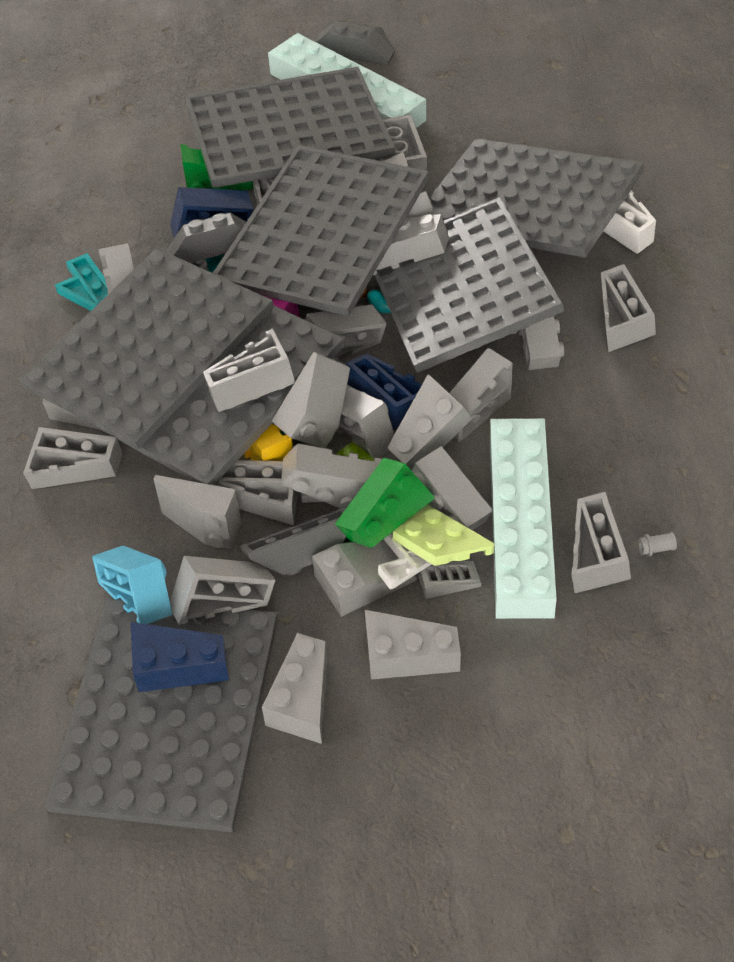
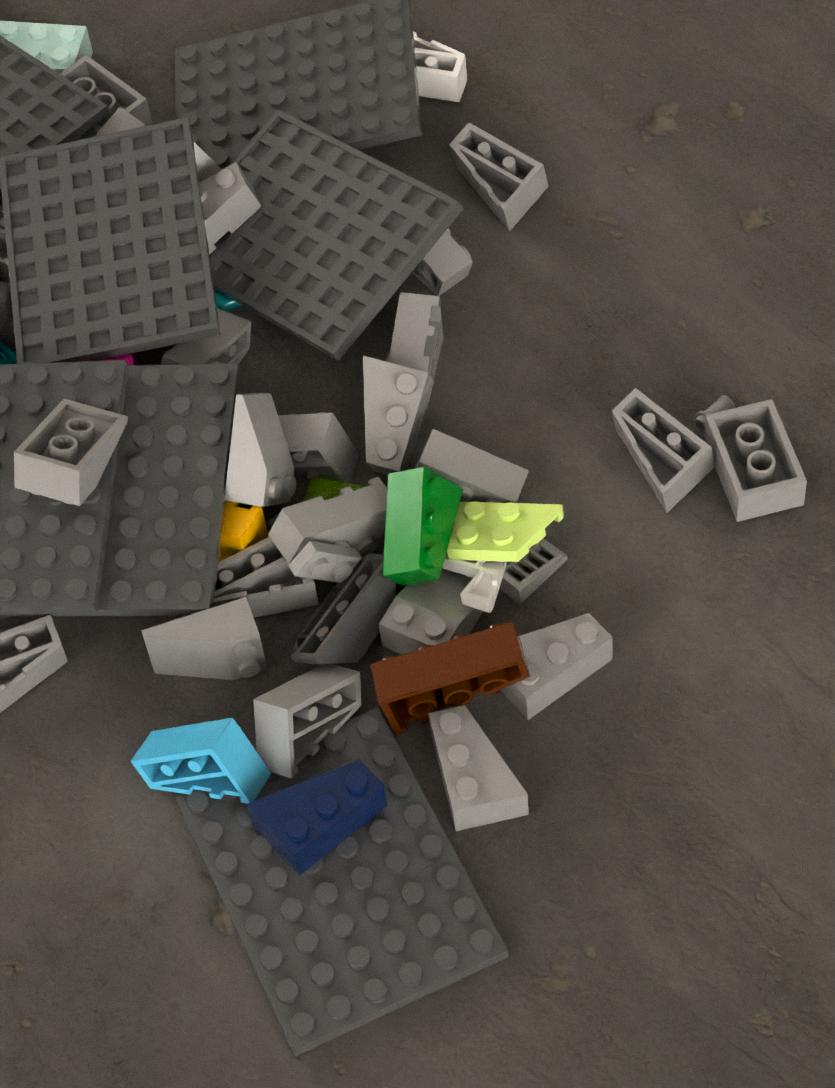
camera: 30 degrees left, 5 degrees up
(188, 336) = (68, 452): none -> light grey slope
(250, 374) = (175, 456): light grey wedge -> none
(306, 495) = (325, 562): none -> light grey plate
(326, 612) = (448, 674): none -> reddish brown wedge
(383, 383) = (314, 392): dark blue wedge -> none
(521, 520) = (563, 462): light aqua brick -> none
(659, 588) = (755, 460): none -> light grey brick

